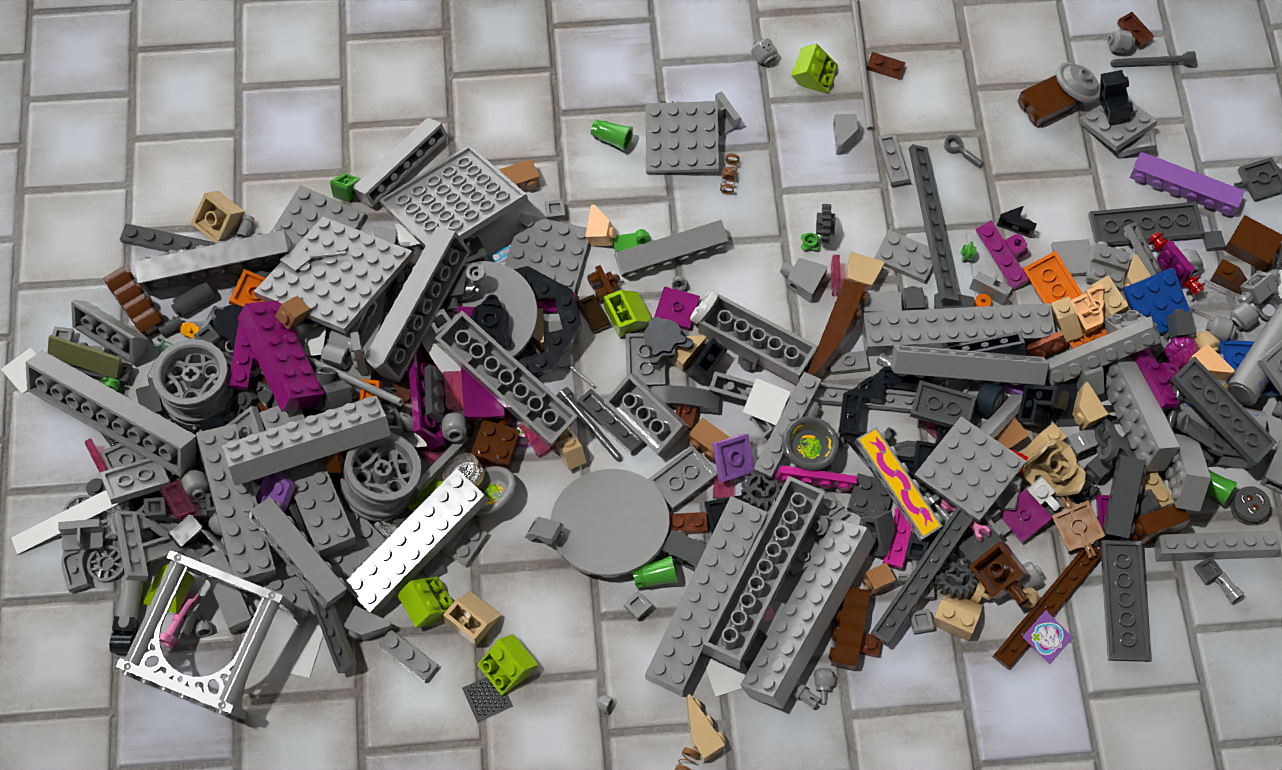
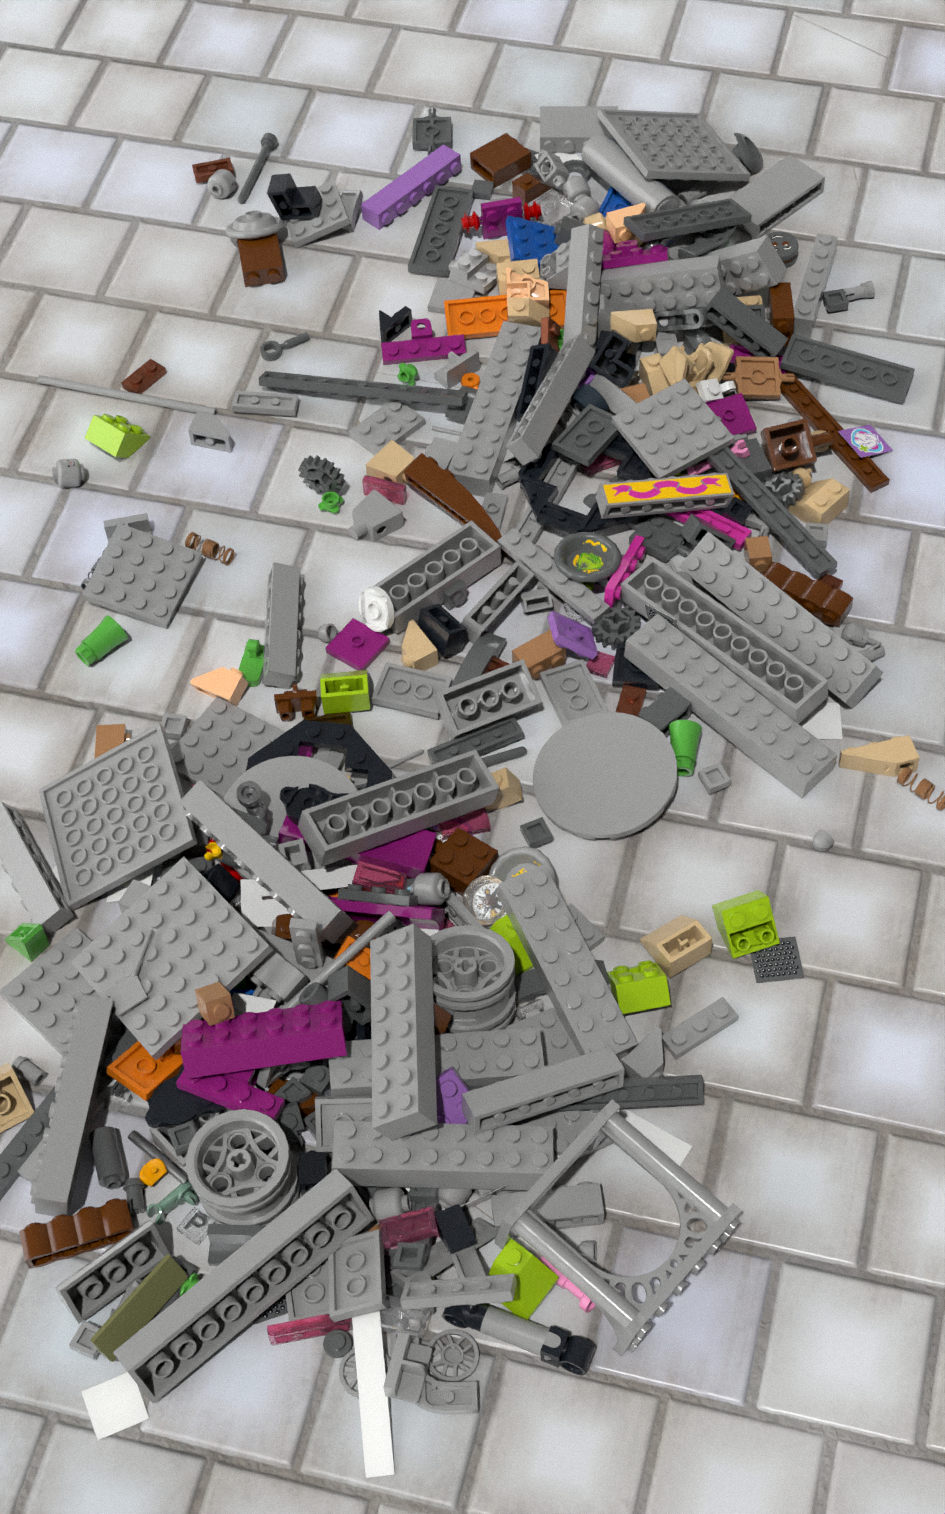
camera: 65 degrees left, 10 degrees down
(542, 489) = (536, 833): none -> dark grey plate
(545, 530) = (595, 835): slope -> none
(663, 338) = (399, 657): tile -> none
(766, 401) = (518, 584): white sticker -> none
(913, 298) = (446, 429): dark grey brick -> none
(1141, 247) = (454, 237): light grey plate -> none

